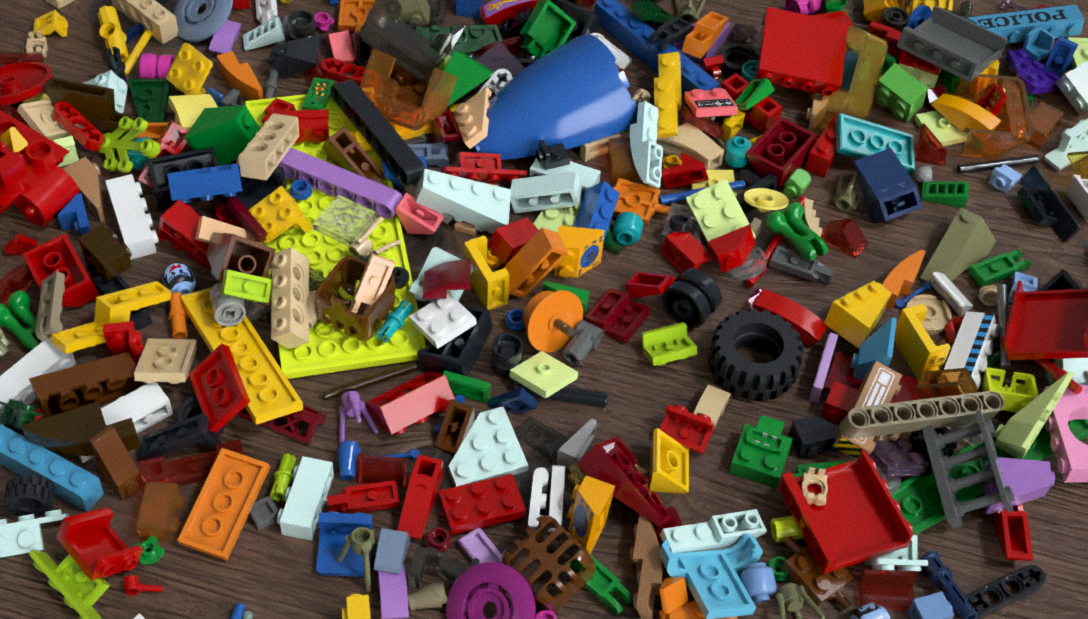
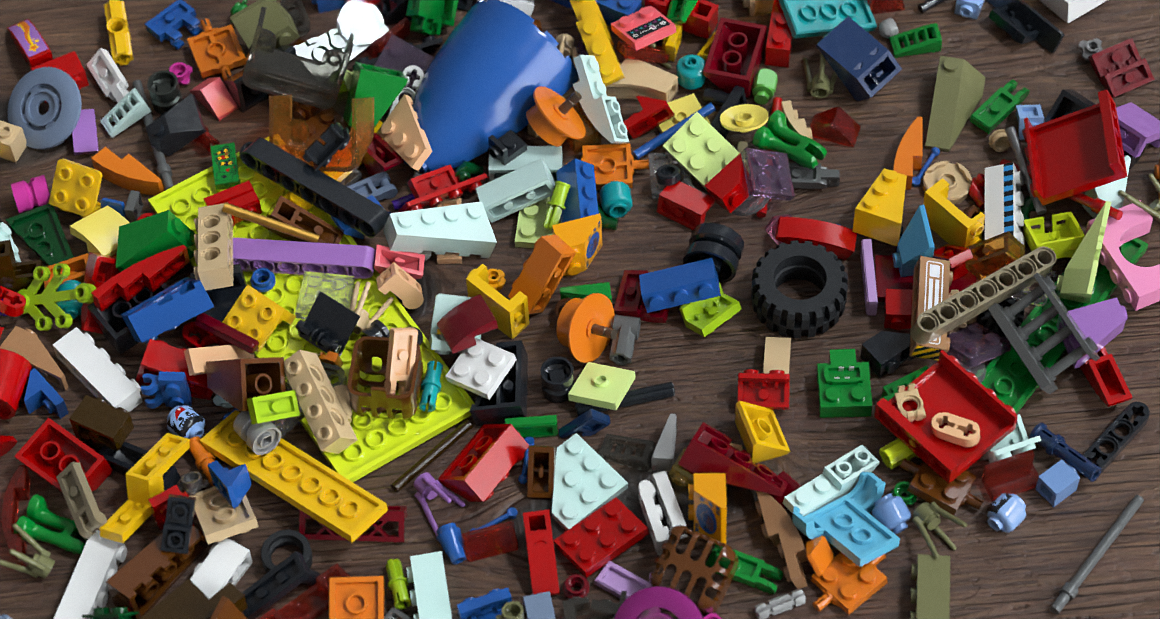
camera: 15 degrees left, 5 degrees up
(118, 354) = (178, 524): none -> black slope
(157, 329) = (192, 483): none -> flat silver plate
(176, 245) = (167, 388): none -> blue plate
(185, 338) = (230, 483): none -> blue slope
(197, 149) = (147, 273): none -> red slope
(219, 387) = (296, 519): red plate -> none
(277, 106) = (191, 200): red plate -> none
(321, 268) = (331, 358): none -> orange tile
(324, 144) = (270, 223): none -> pearl gold bar
(332, 241) = (328, 324): none -> black hinge
(335, 70) = (233, 119): red beam -> none
(365, 498) = (487, 574): red hinge -> none
(407, 96) = (335, 139): none -> black hinge
(412, 233) = (402, 285): none -> light nougat leg
(480, 27) = (362, 20): none -> clear tile
(511, 238) = (509, 254): red brick -> none
(512, 316) = (547, 333): blue plate -> none
(513, 163) = (467, 169): none -> dark green arm
(573, 212) = (556, 204): none -> lime axle
(603, 144) = (555, 117): none -> orange piece
(647, 284) = (658, 253): red slope -> none
(649, 313) = (679, 285): none -> blue brick
(671, 161) = (628, 103): light orange plate -> none
(767, 250) = (767, 174): none -> clear purple plate
(849, 525) = (956, 429): none -> light nougat beam
(909, 379) = (957, 257): none -> red slope
(950, 293) = (962, 152): white slope -> none

